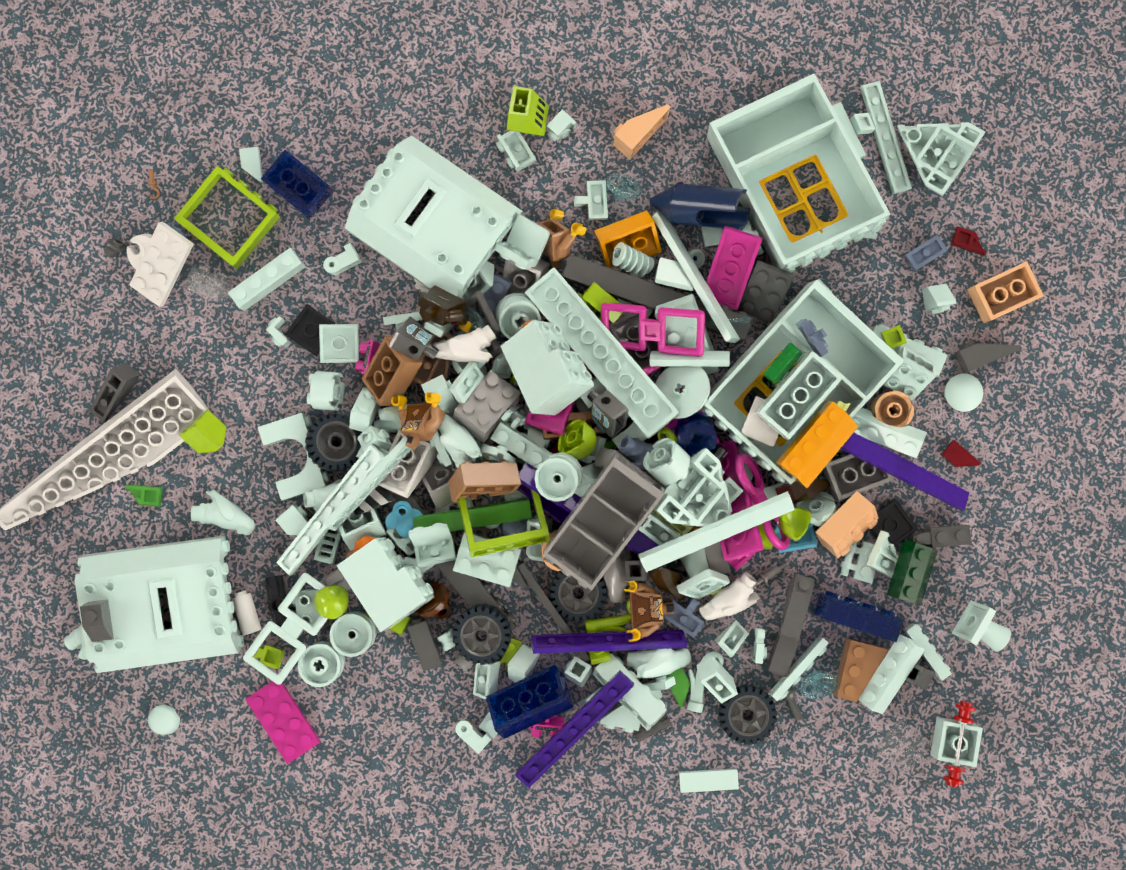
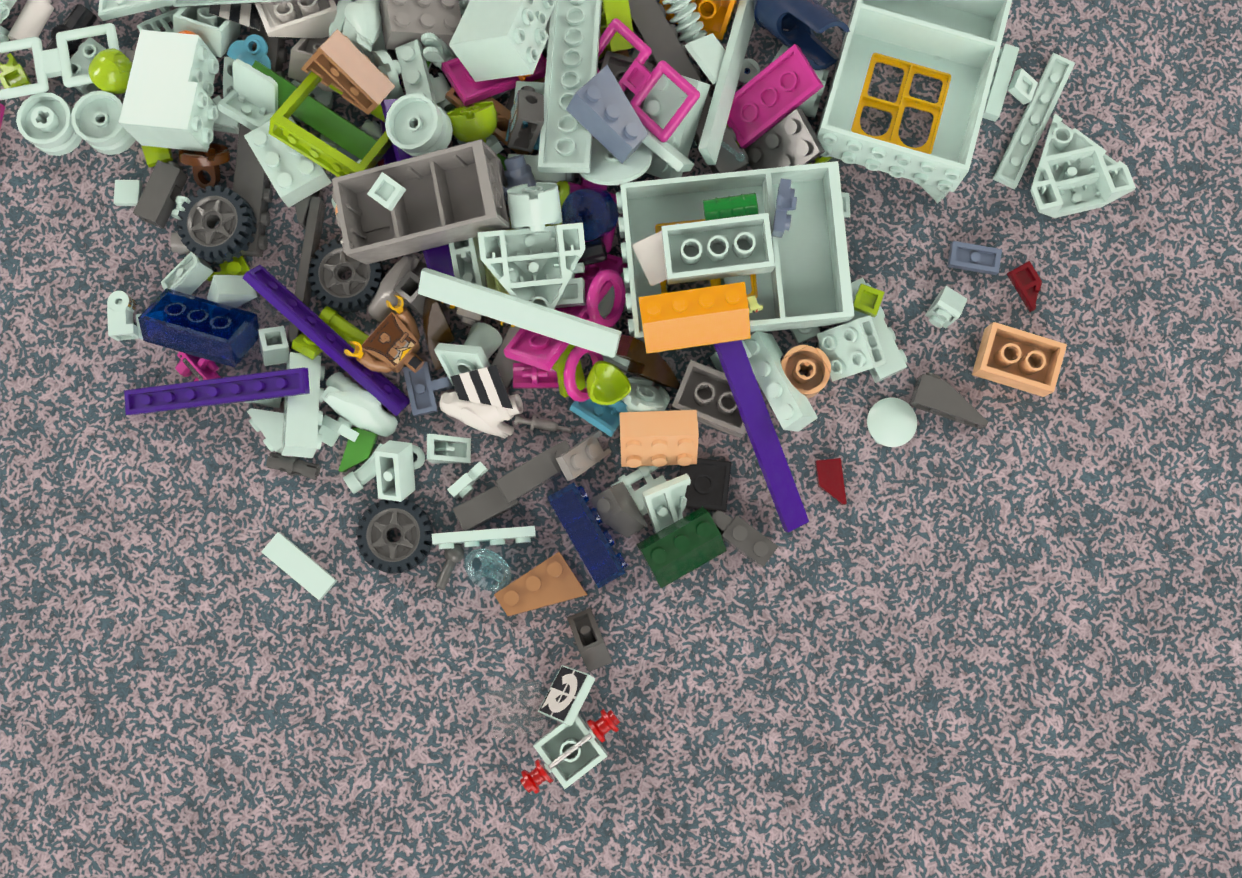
camera: 40 degrees right, 5 degrees down
(403, 660) = (127, 192): none -> light aqua tile
(587, 535) = (386, 191): none -> light aqua plate
(661, 370) = (608, 115): none -> sand blue wedge
(725, 588) = (482, 387): none -> sticker
(814, 574) = (582, 456): none -> light grey hinge
(860, 585) = (619, 510): none -> dark grey slope
(891, 674) = (567, 621): light aqua brick -> none
(928, 715) = (566, 695): none -> tile
(930, 656) = (626, 638): light aqua piece -> none
(977, 625) = (701, 667): light aqua plant -> none

